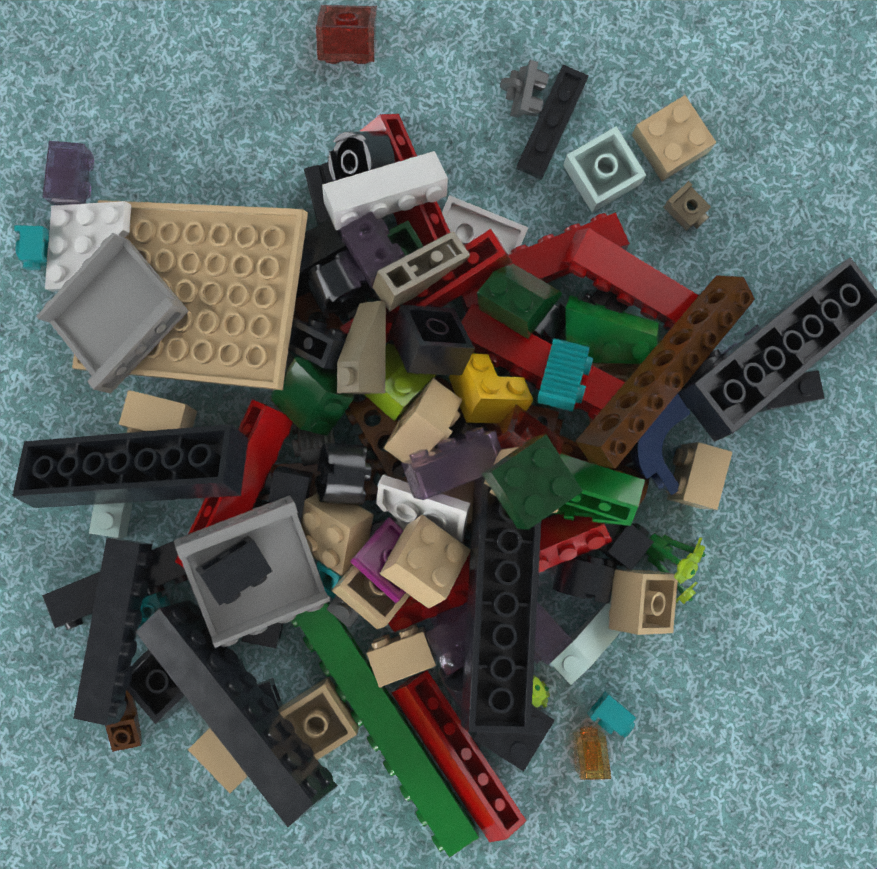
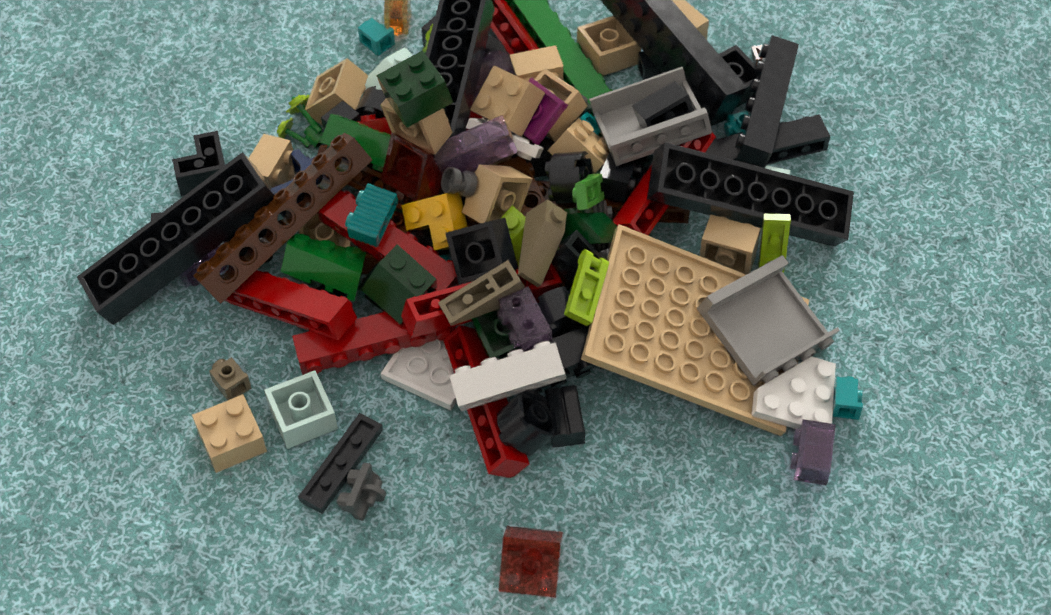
camera: 175 degrees left, 30 degrees down
(102, 420) = (774, 237): none -> lime plate
(306, 294) = (586, 288): none -> lime plate
(315, 438) = (588, 192): none -> bright green plate
(466, 415) = (461, 182): none -> dark grey wheel
(774, 481) = (196, 168): none -> black brick

